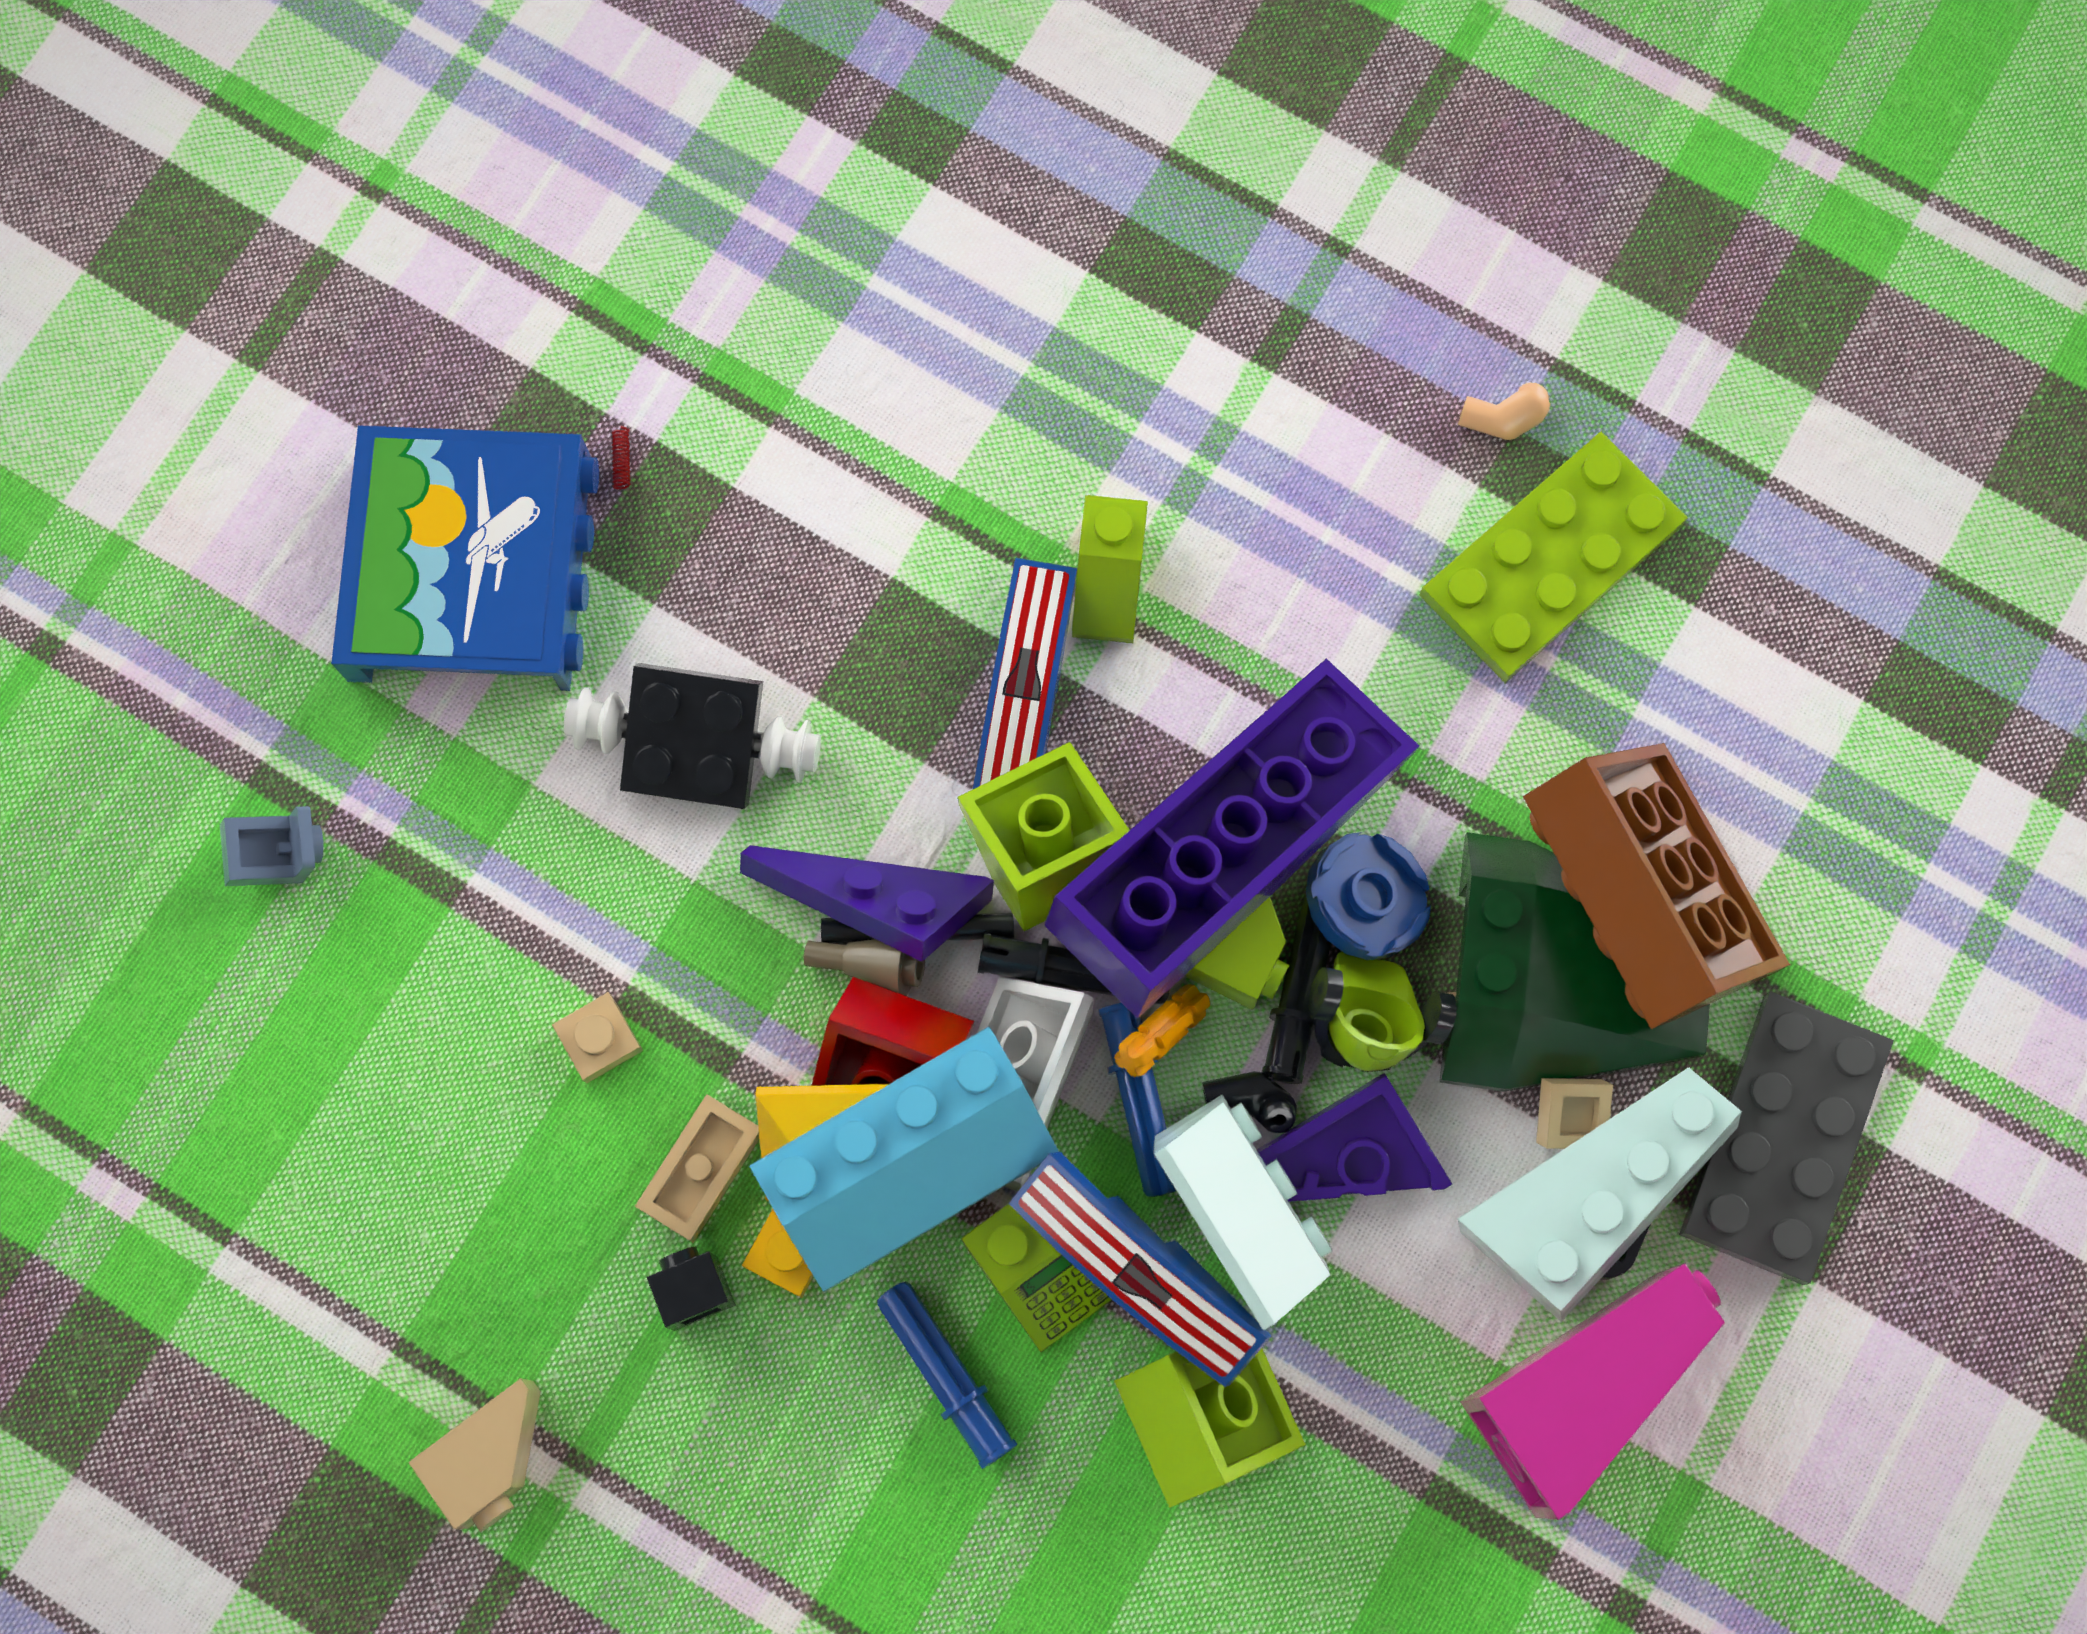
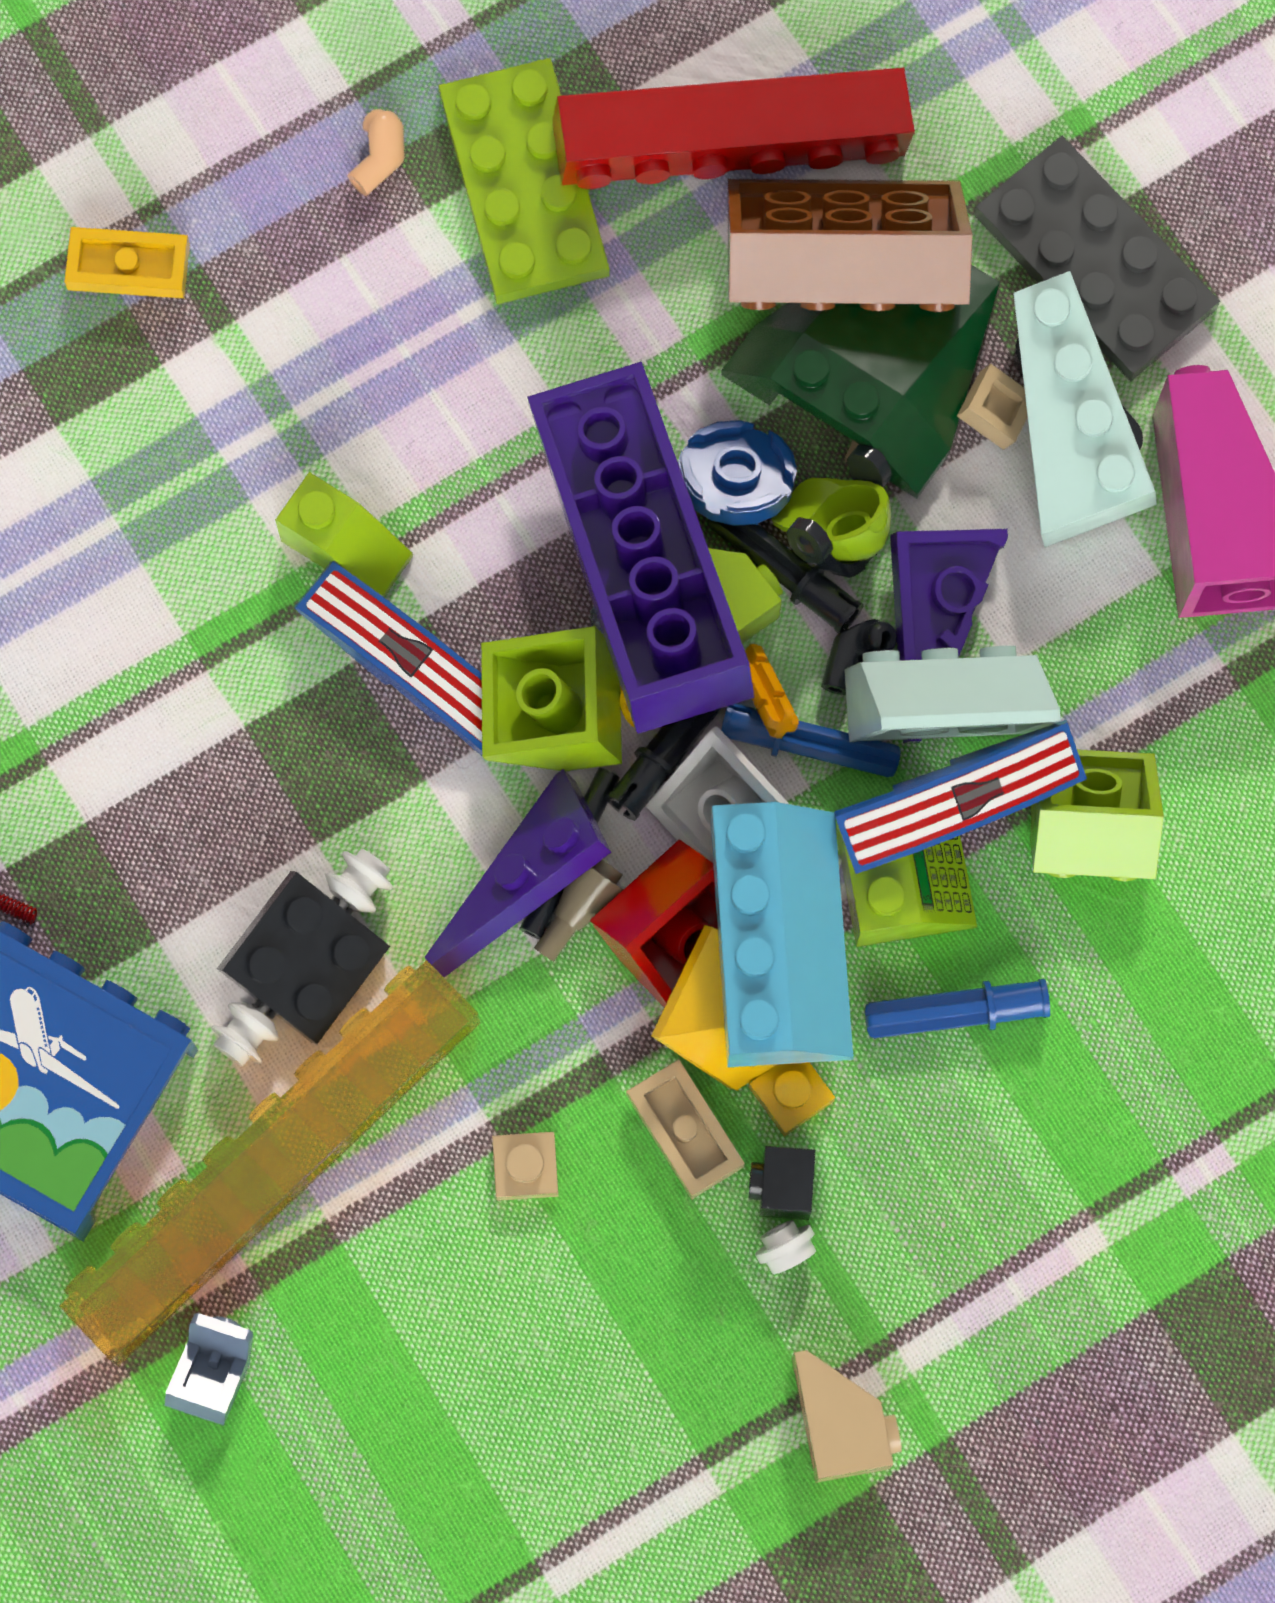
camera: 65 degrees left, 0 degrees up
(487, 804) = (270, 1162): none -> clear yellow brick
(630, 1321) = (786, 1246): none -> white plate
(1272, 249) = (127, 262): none -> yellow plate
(1713, 719) = (732, 127): none -> red brick

